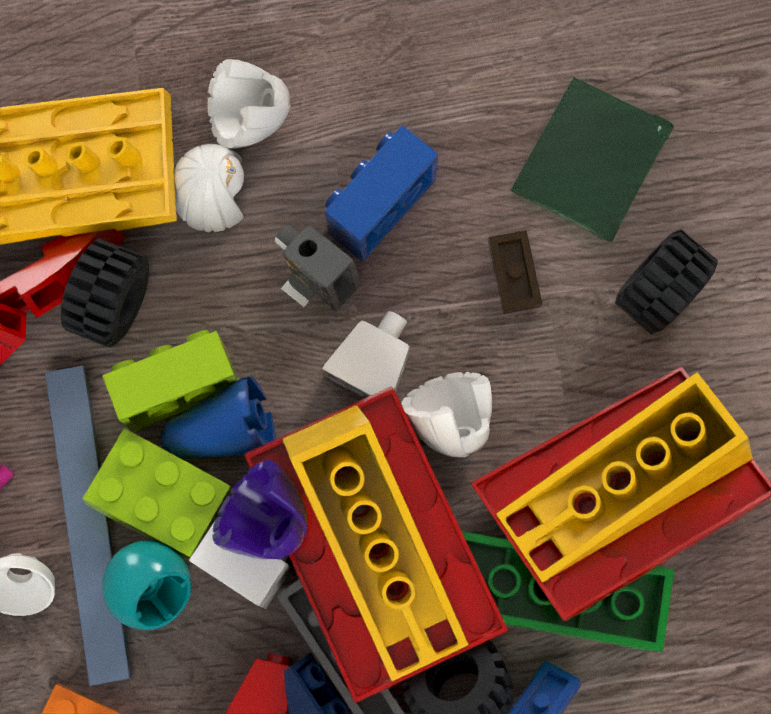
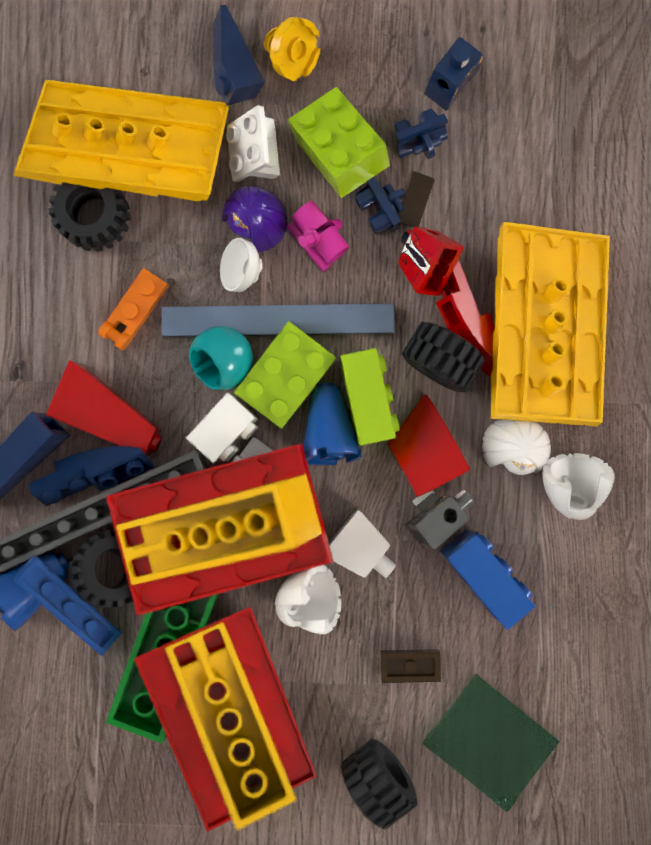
camera: 95 degrees right, 10 degrees up
(230, 296) = (427, 449): none -> red slope
(262, 515) = (247, 451): dark purple hair -> none

